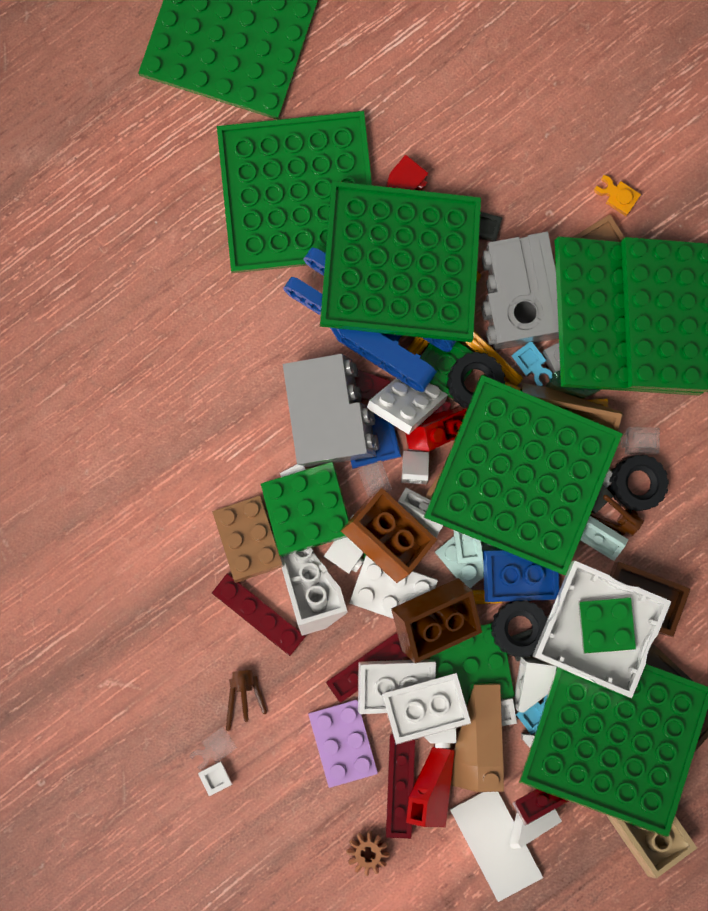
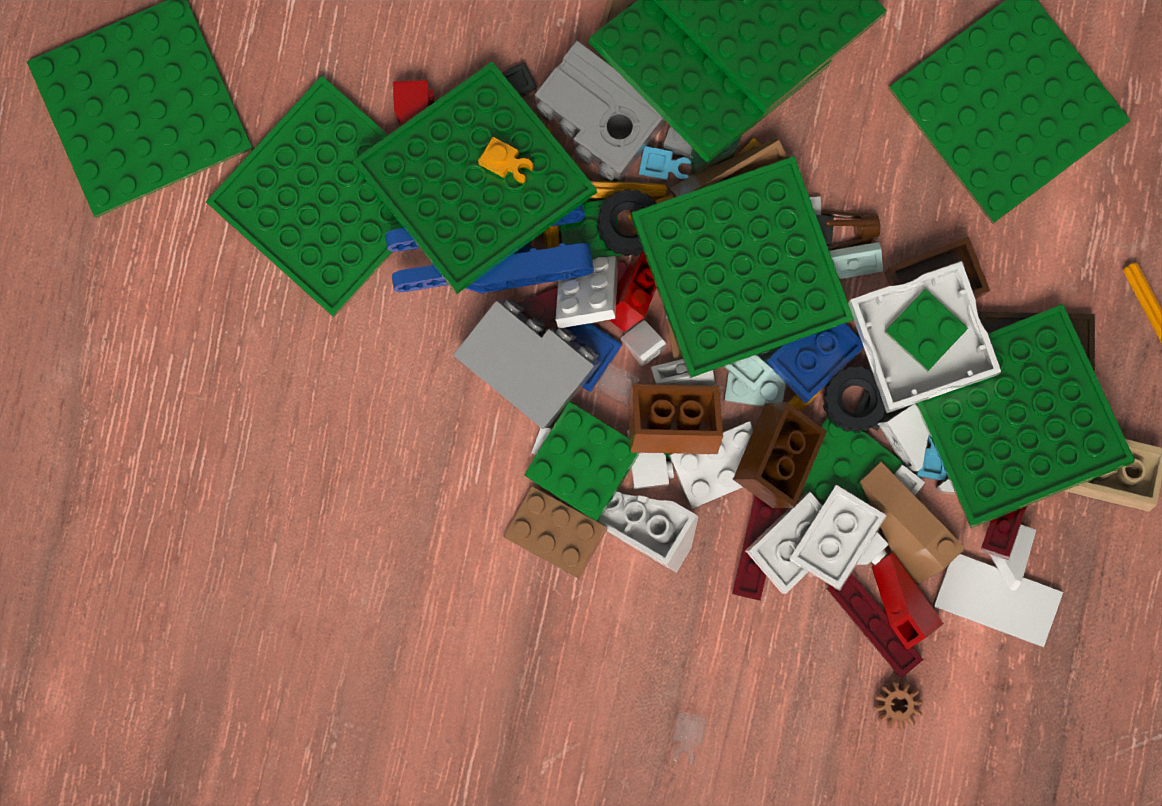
camera: 40 degrees left, 0 degrees up
(215, 778) = (712, 760): white plate -> none
(242, 683) = (661, 657): reddish brown plant -> none
(258, 614) = (623, 589): dark red plate -> none
(342, 743) = (793, 633): lavender plate -> none
(429, 265) = (503, 158): none -> light orange plate
(641, 441) = (814, 148): clear brick -> none
(657, 478) = (863, 174): black tyre -> none

